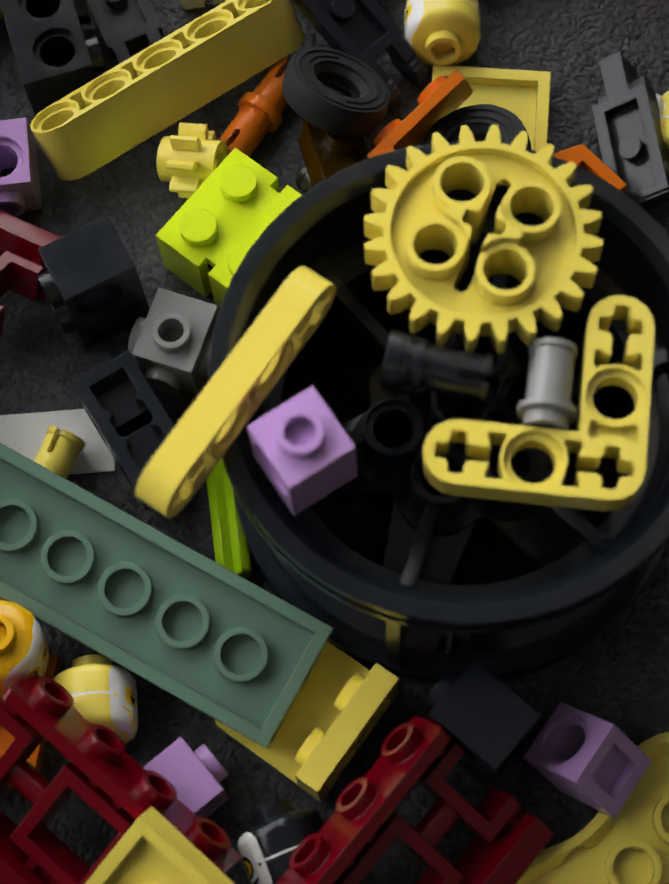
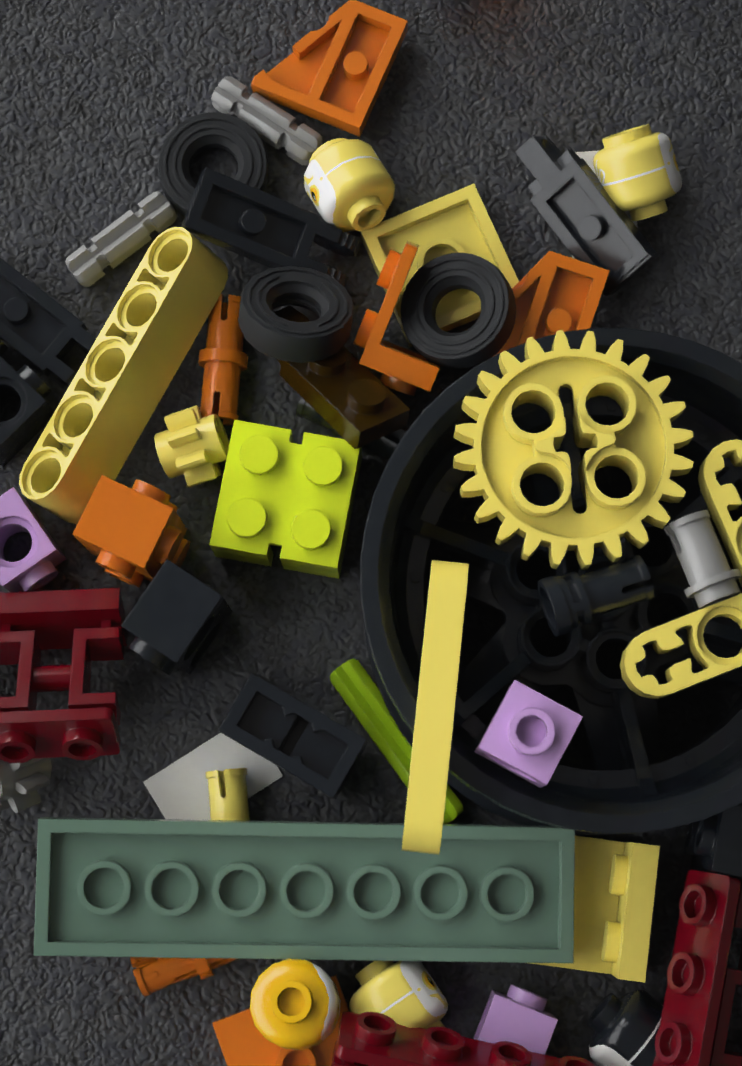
camera: 30 degrees left, 10 degrees up
(100, 182) = (132, 530): none -> orange brick
(174, 342) = (276, 611): light grey brick -> none

